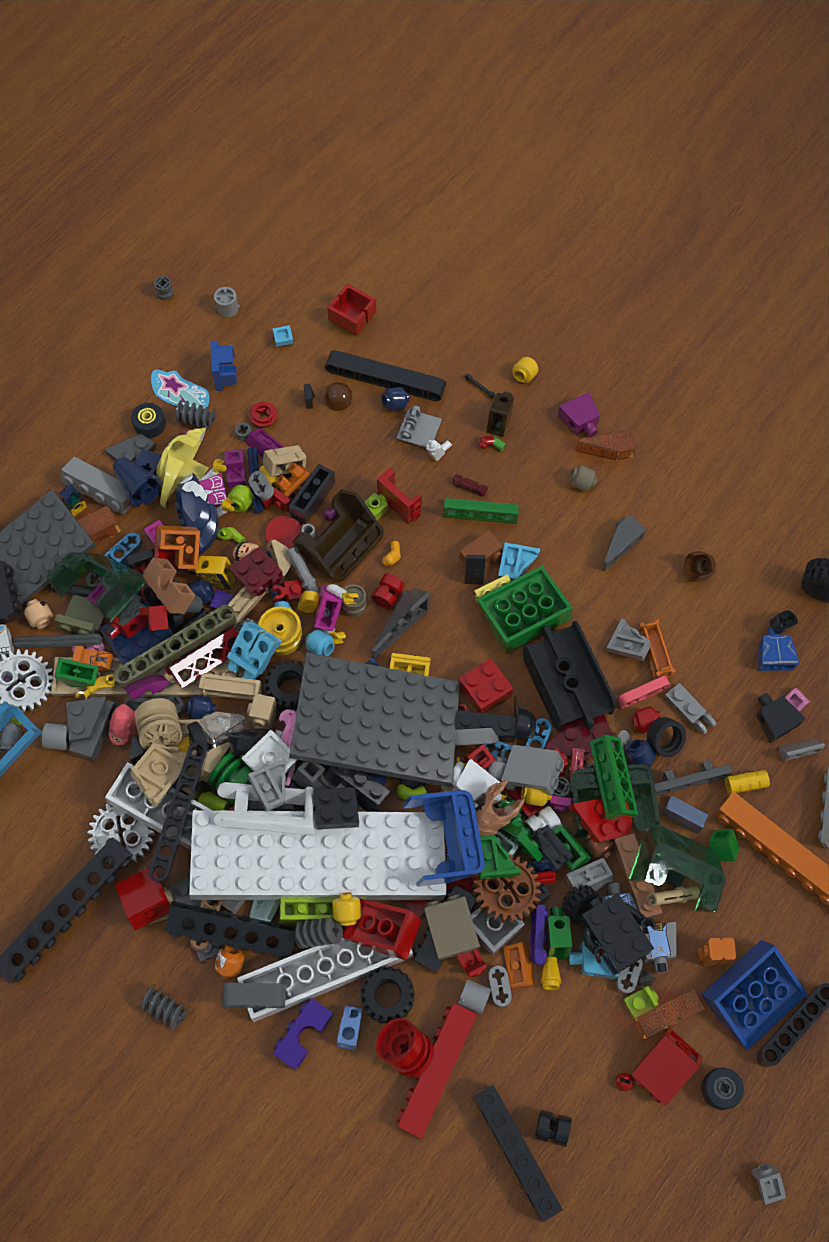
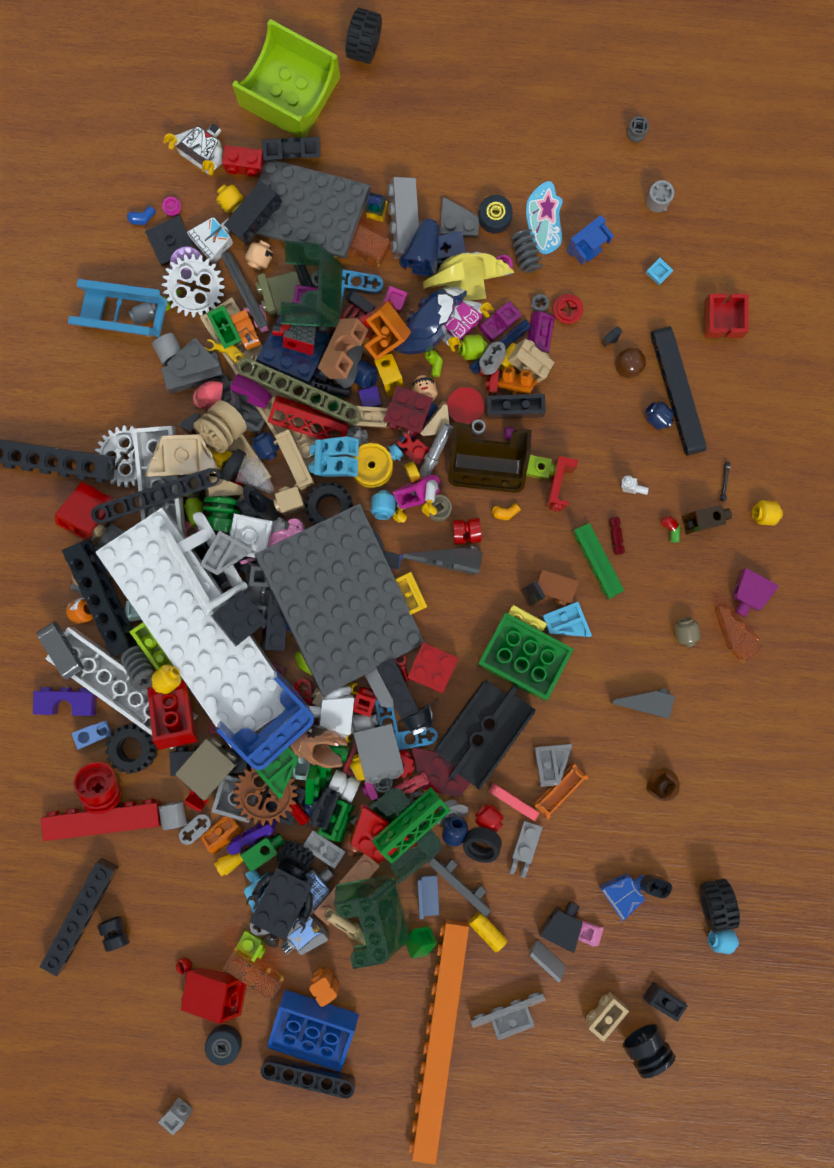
camera: 60 degrees right, 20 degrees up
(156, 616) = (309, 358): red panel -> none
(163, 1008) = (17, 585): dark grey piece -> none
(418, 427) = (644, 455): light grey hinge -> none

